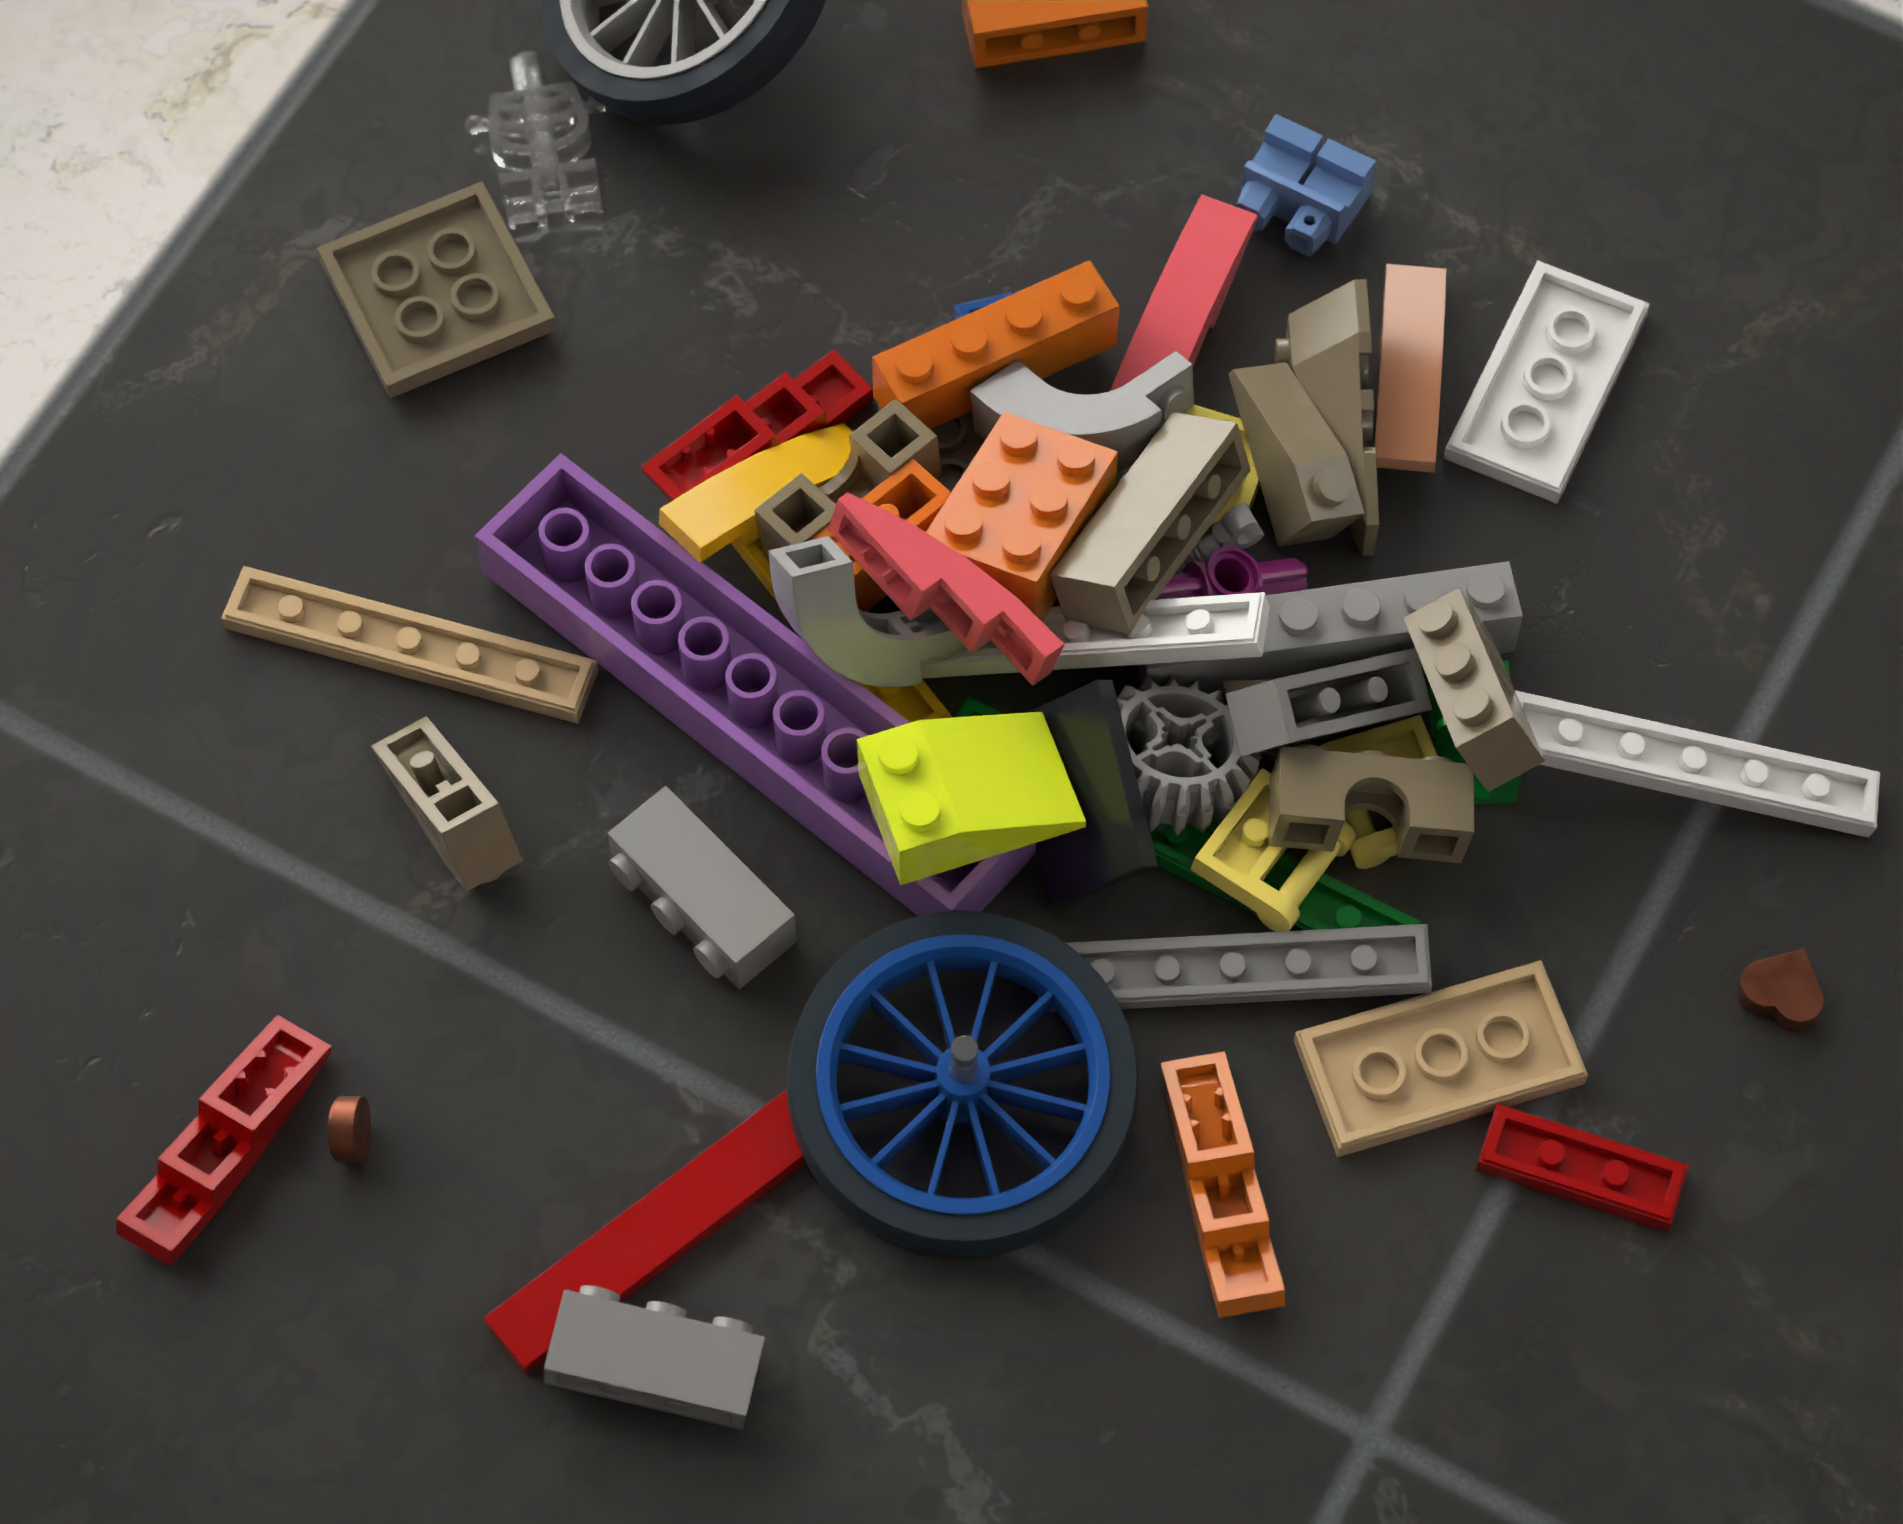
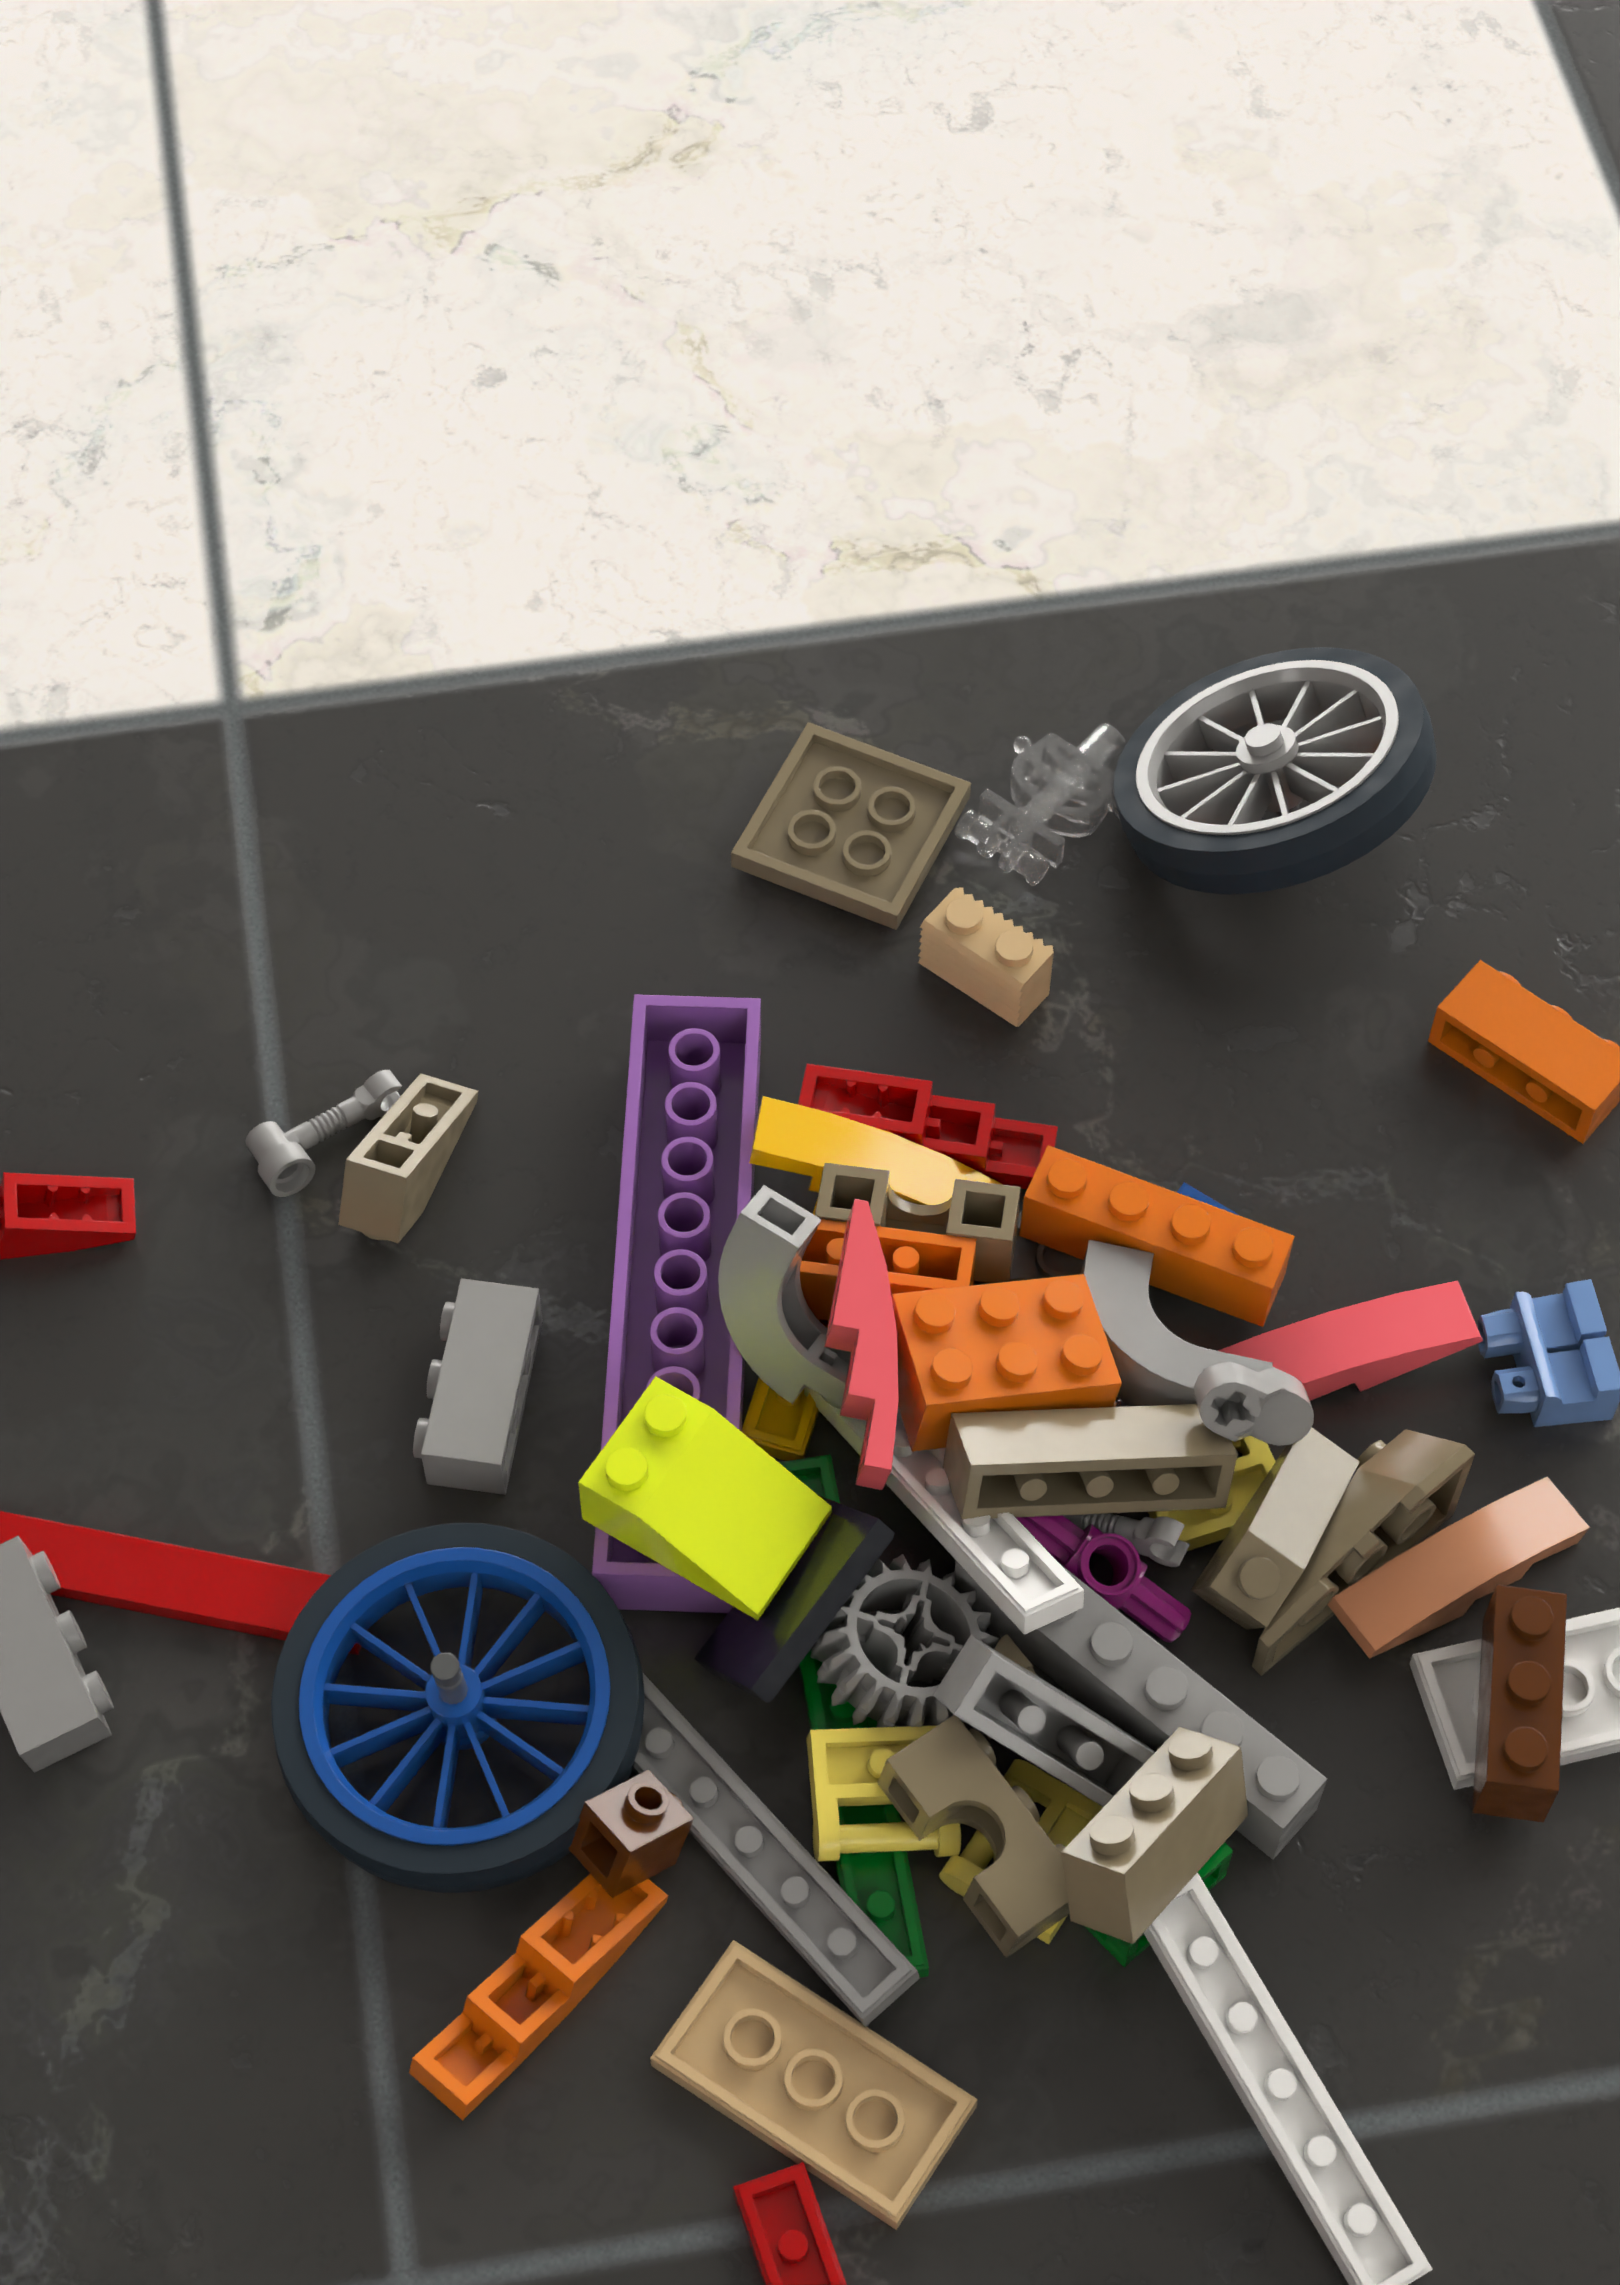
camera: 50 degrees right, 5 degrees down
(349, 1129) = (70, 1296): copper tile -> none
(358, 890) = (282, 1155): none -> light grey brick
(410, 644) = (532, 1038): tan tile -> none
(648, 285) = (986, 956): none -> tan brick
(1166, 1036) = (631, 1833): none -> reddish brown brick
(1204, 384) = (1253, 1403): none -> light grey piece
(1549, 406) = (1520, 1704): none -> reddish brown brick

